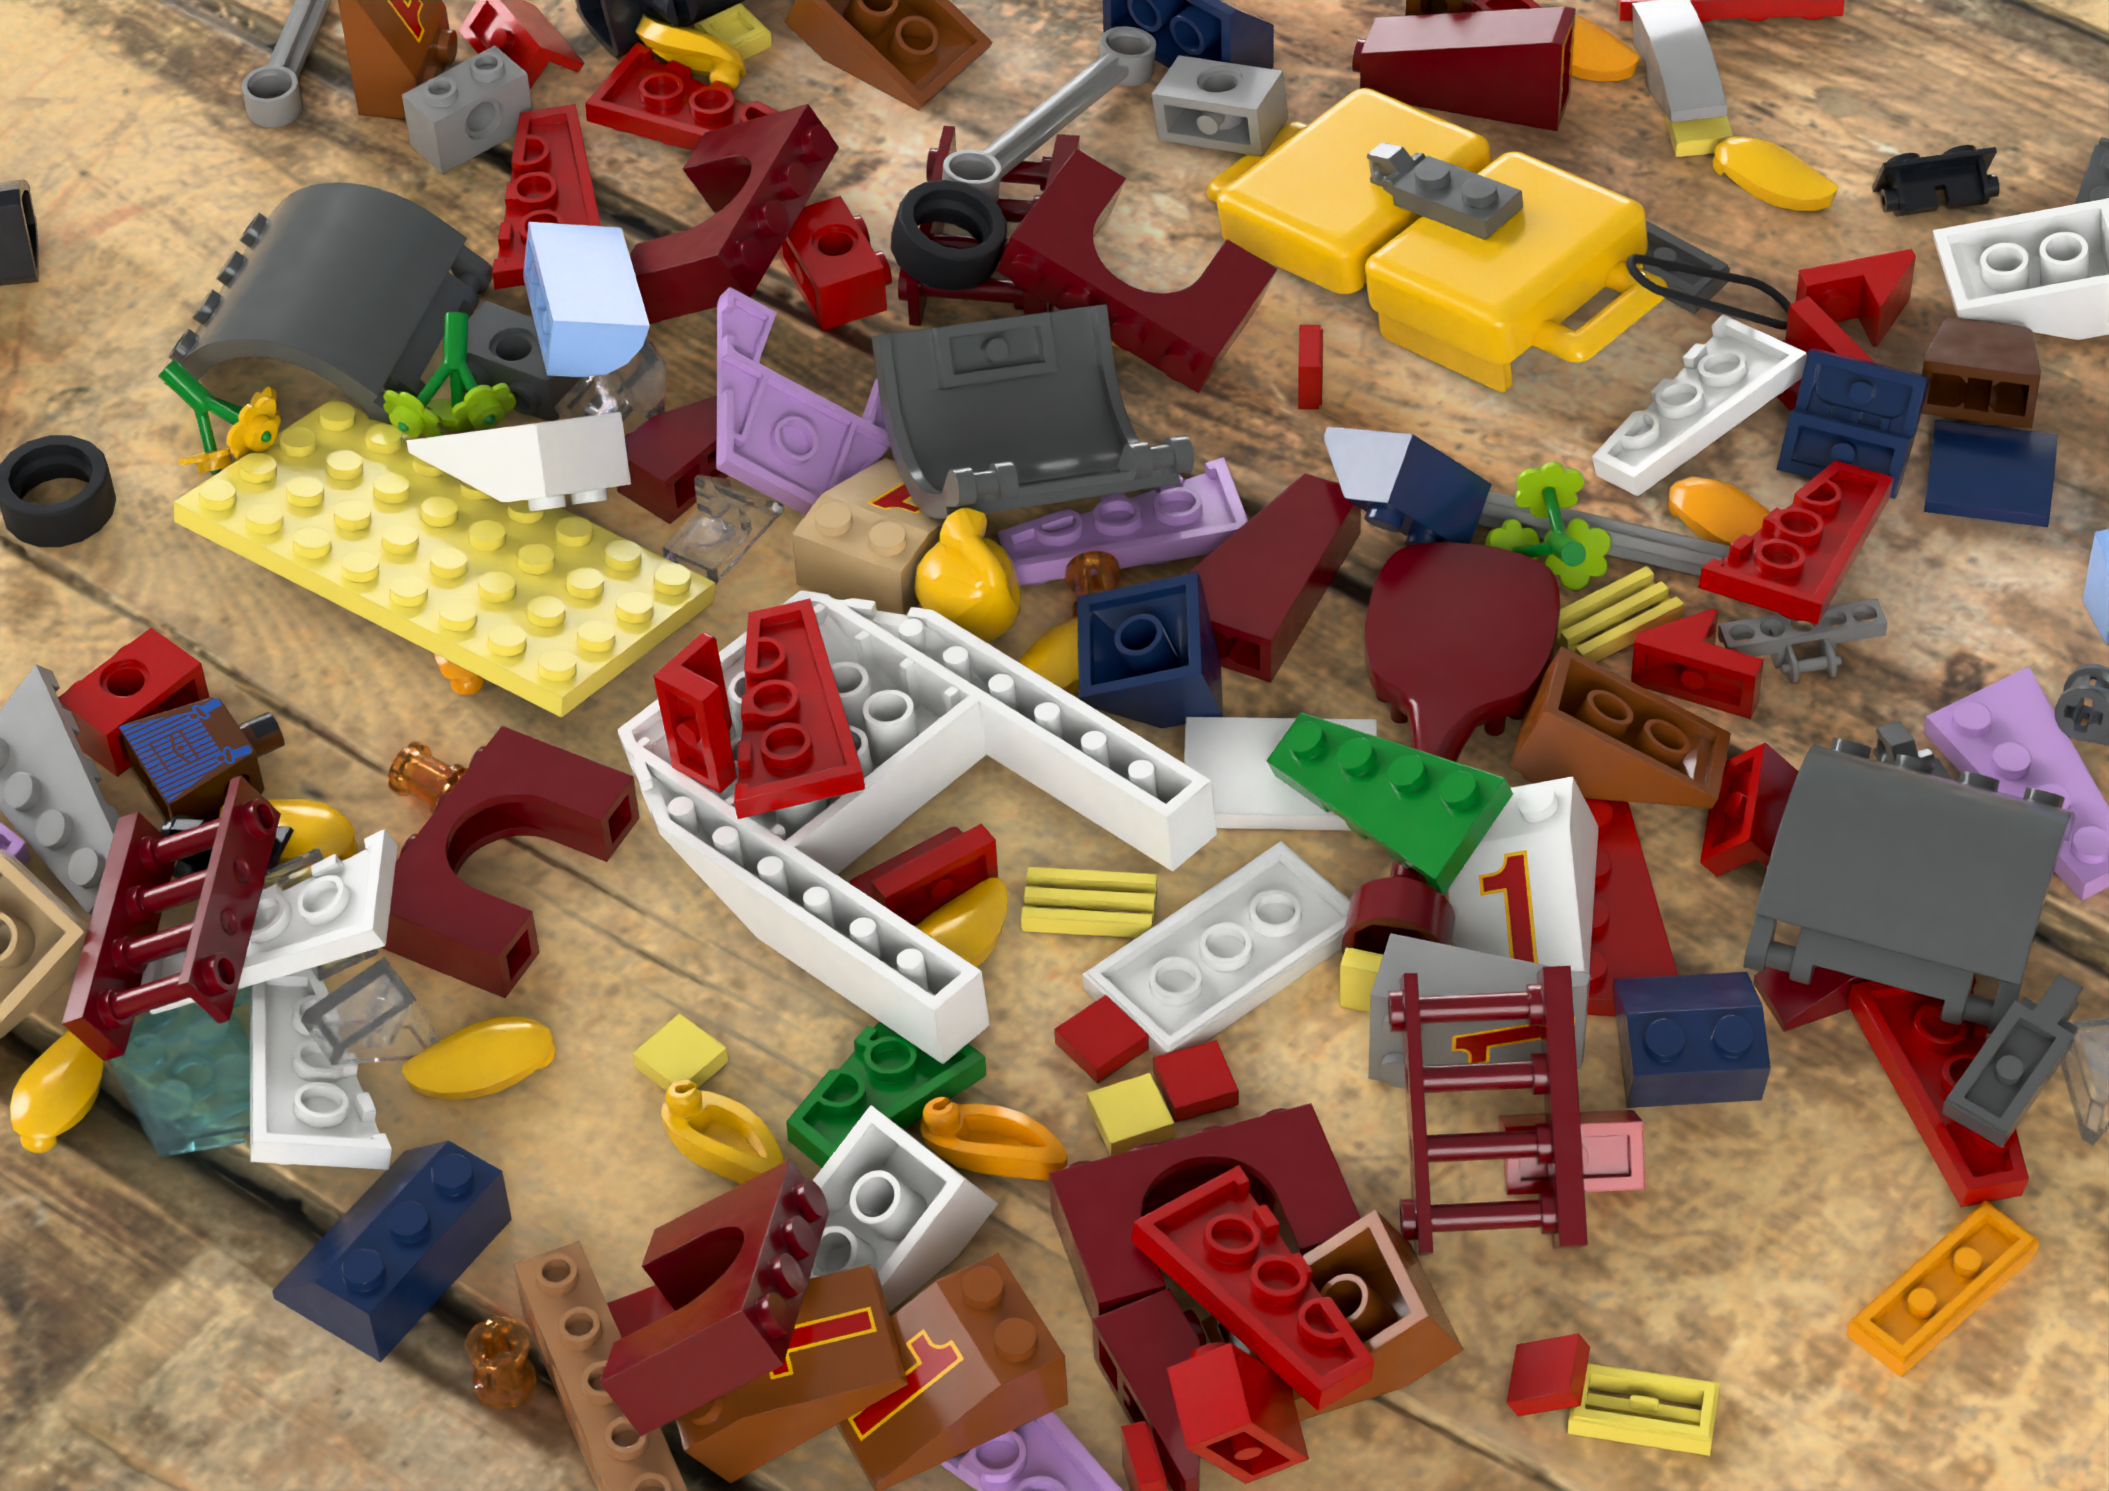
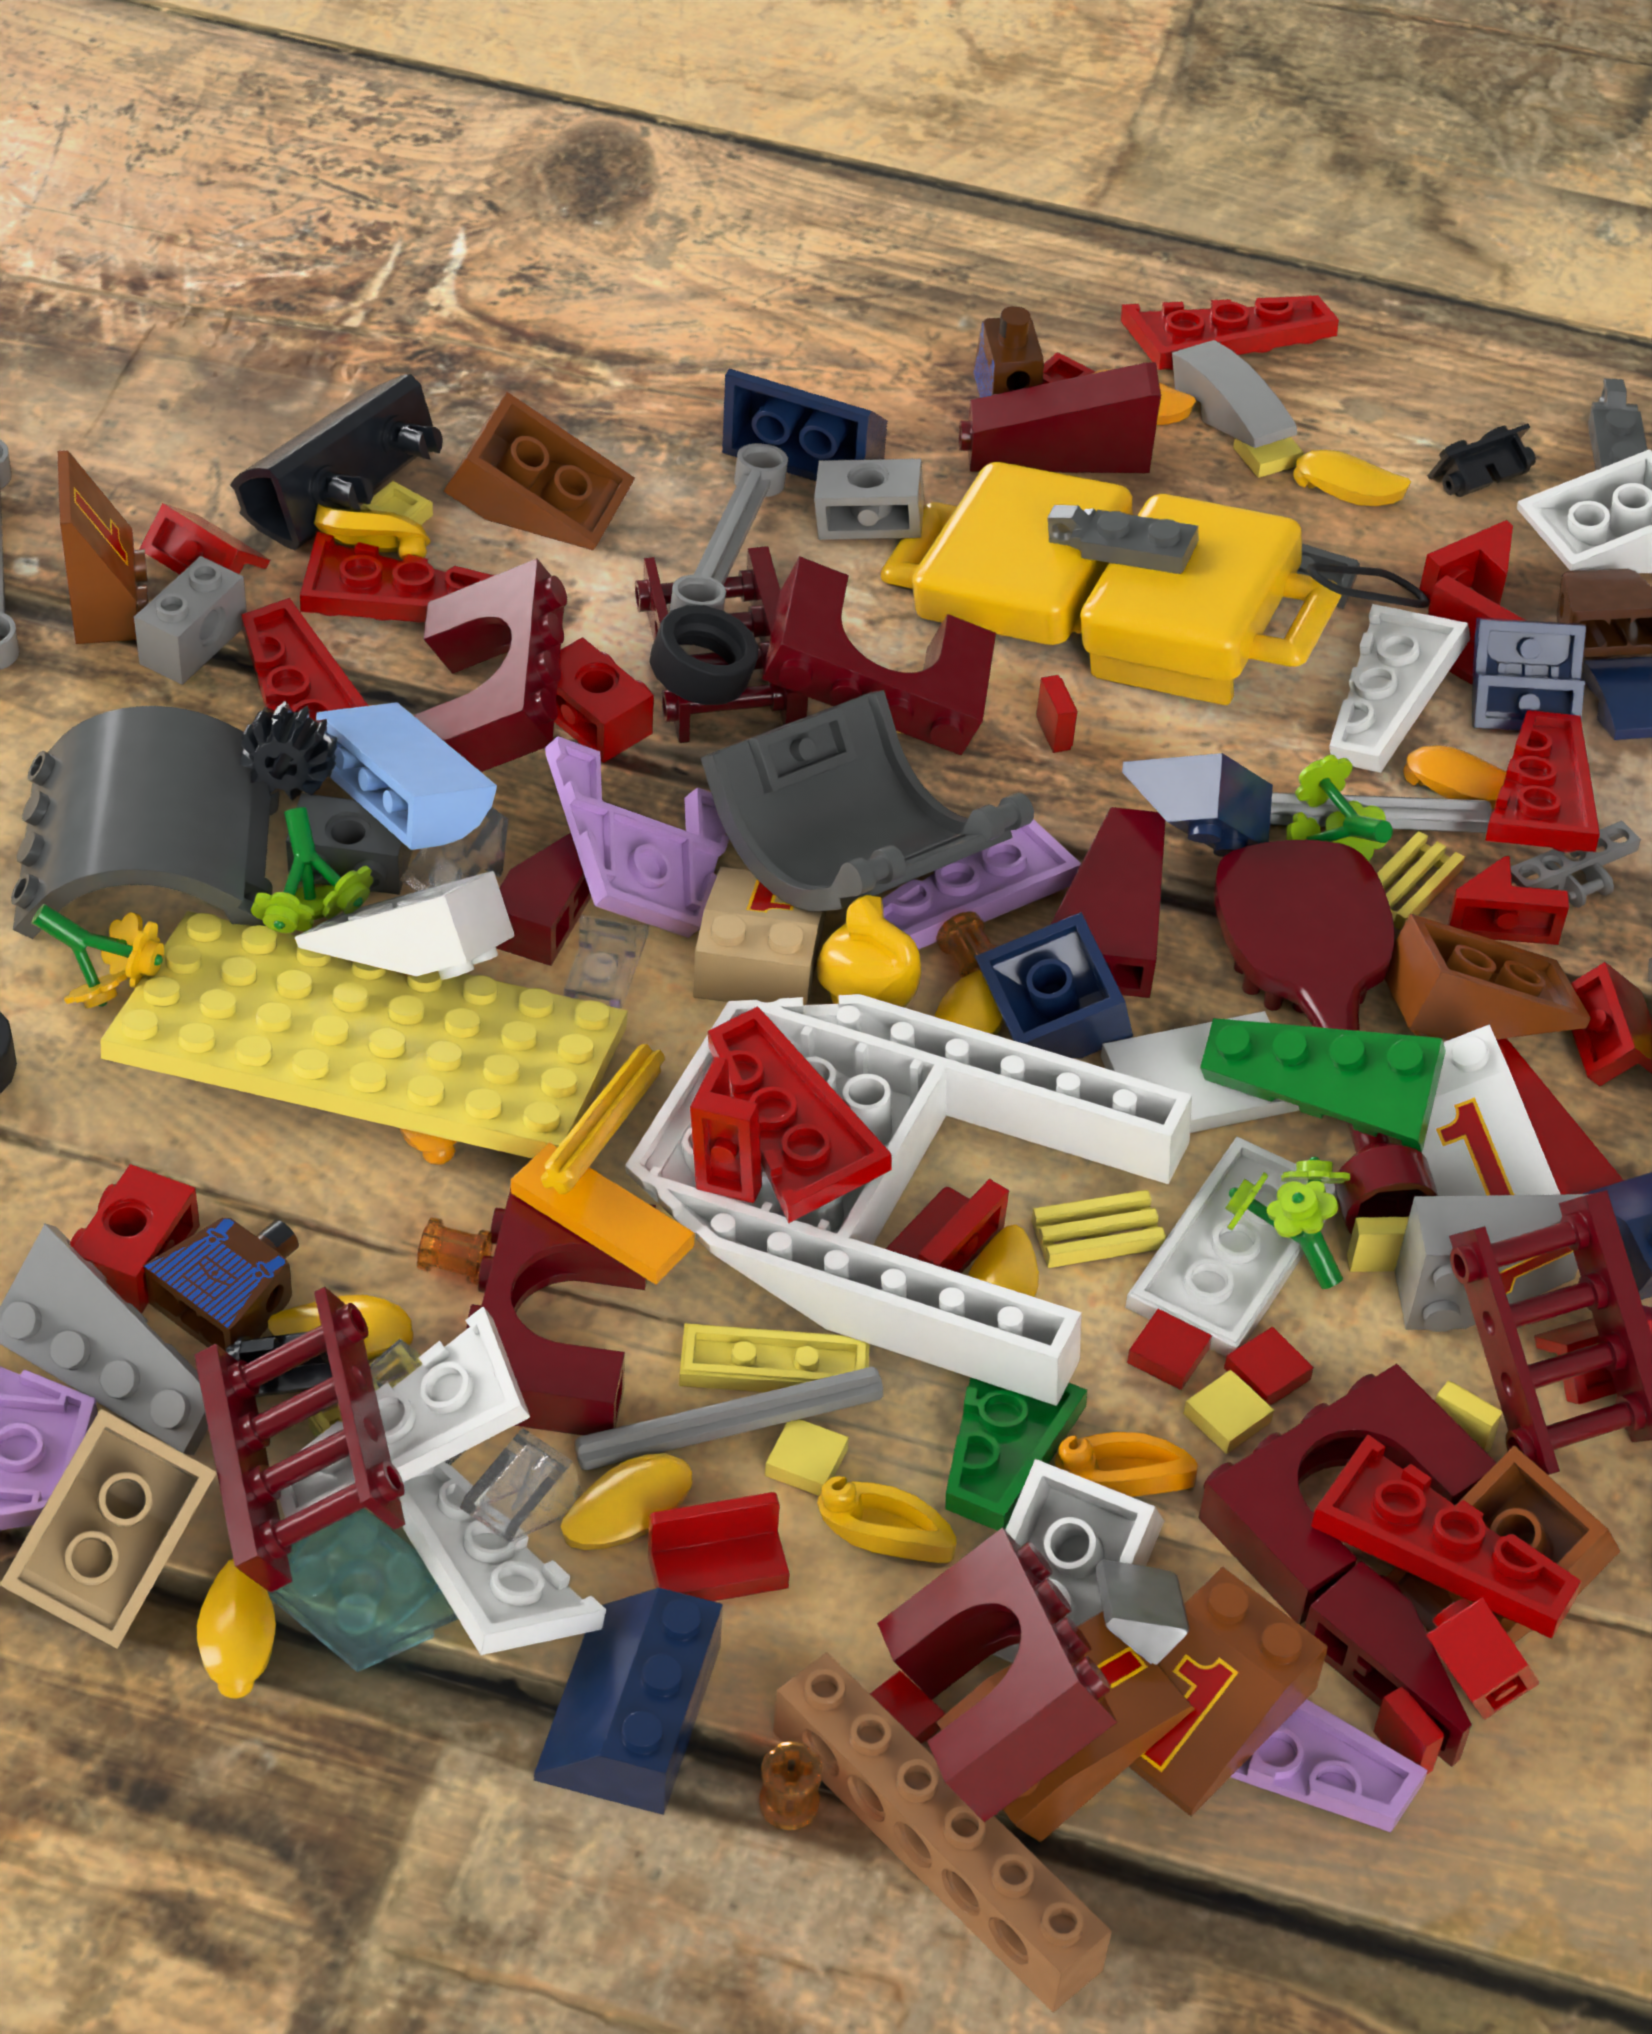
camera: 25 degrees left, 0 degrees up
(479, 254) = (288, 750): none -> black gear
(544, 1123) = (719, 1548): none -> red panel
(571, 771) = (608, 1218): none -> light orange tile
(604, 684) = (602, 1119): none -> yellow axle
(619, 1001) = (728, 1418): none -> light grey axle
(695, 959) = (764, 1357): none -> light yellow tile
(894, 1270) = (1142, 1607): none -> flat silver slope
(1279, 920) = (1298, 1211): none -> lime plant
(1368, 1177) = (1471, 1413): none -> light yellow tile

